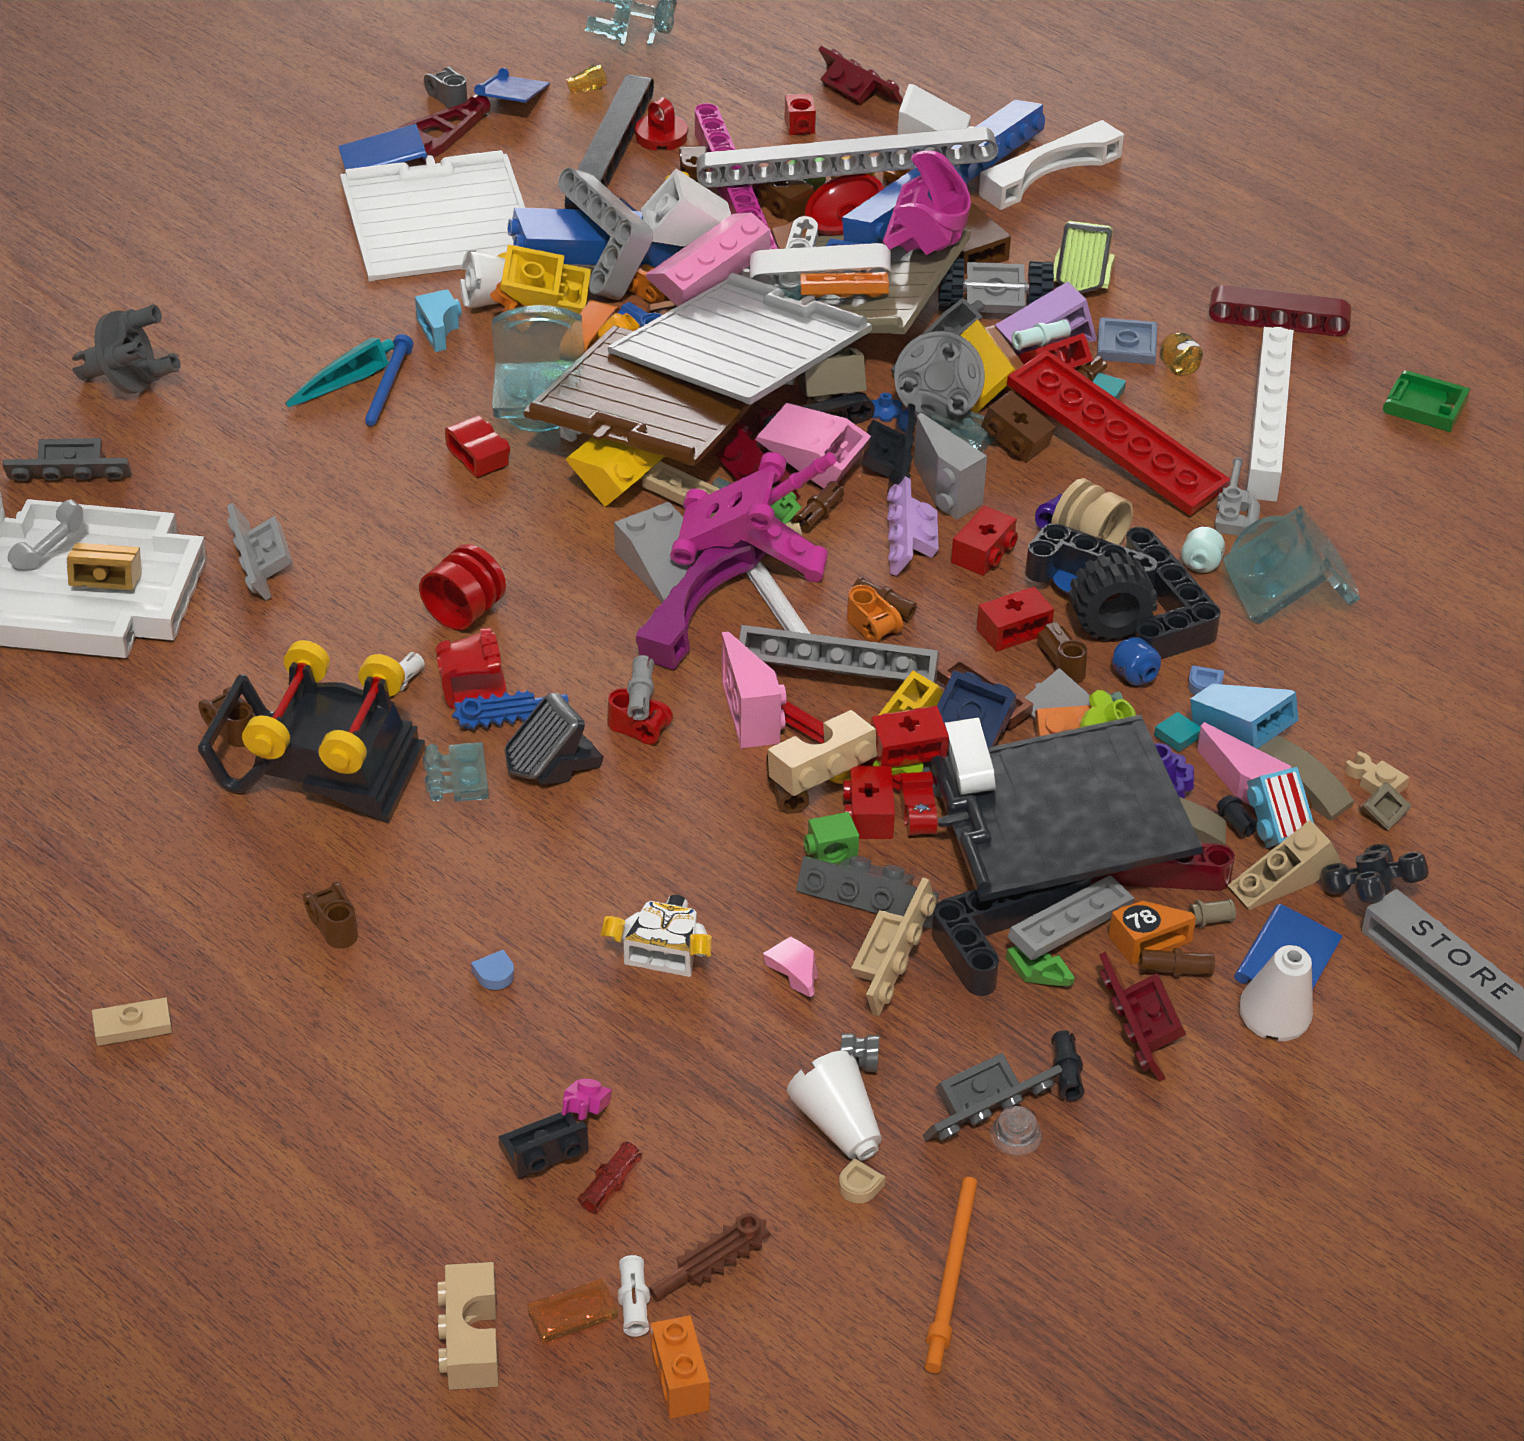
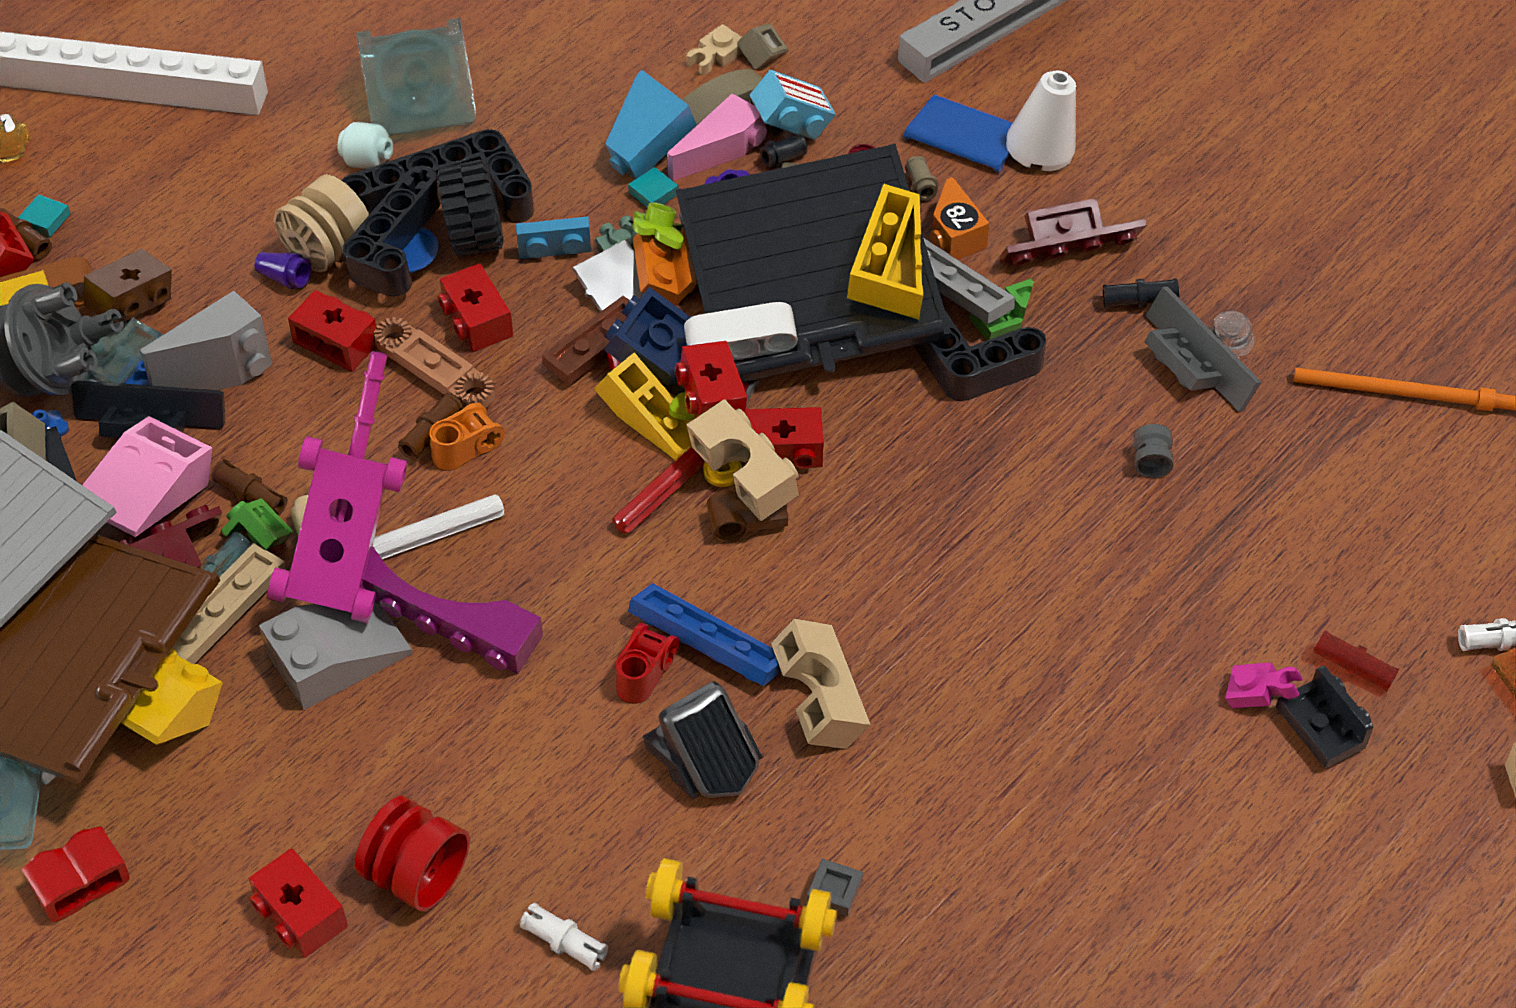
camera: 90 degrees left, 10 degrees up
(333, 915) = (998, 967): reddish brown piece -> none
(416, 820) = (840, 881): none -> dark grey plate
(435, 541) = (297, 902): none -> red brick
(467, 770) = (737, 843): clear light blue plate -> none
(471, 667) = (571, 830): red piece -> none
(494, 970) = (1068, 789): medium blue tile -> none
(496, 709) = (626, 807): blue piece -> none
(572, 818) = (833, 710): none -> tan arch
(640, 687) = (629, 638): light grey pin -> none
(661, 753) = (706, 633): none -> blue plate
(661, 936) = (1013, 616): torso -> none
(714, 1254) = (1432, 570): copper piece -> none
(751, 695) = (620, 540): bright pink slope -> none
(796, 962) = (1029, 506): bright pink slope -> none
(832, 838) = (845, 472): bright green brick -> none
(838, 1103) = (1233, 463): white cone -> none
(839, 654) = (546, 463): light grey brick -> none
(860, 885) = (909, 442): dark grey bracket -> none
(860, 1182) = (1311, 459): tan tile -> none
(889, 944) = (1011, 418): tan bracket -> none
(910, 526) = (292, 402): lavender bracket -> none
(918, 803) = (786, 393): red leg -> none
(952, 599) = (433, 362): none -> nougat plate
(1049, 832) = (890, 255): none -> yellow wedge
(1064, 651) = (544, 265): reddish brown piece -> none
(1102, 666) = (553, 237): none -> dark azure plate
(1118, 432) = (151, 199): red plate -> none
(1136, 661) = (554, 203): blue head -> none
(1176, 962) = (993, 206): reddish brown pin -> none
(1203, 677) = (572, 164): medium blue tile -> none
(1232, 502) = (280, 120): light grey piece -> none
(1286, 868) = (857, 109): tan slope -> none
(1374, 873) = (875, 51): black gear -> none

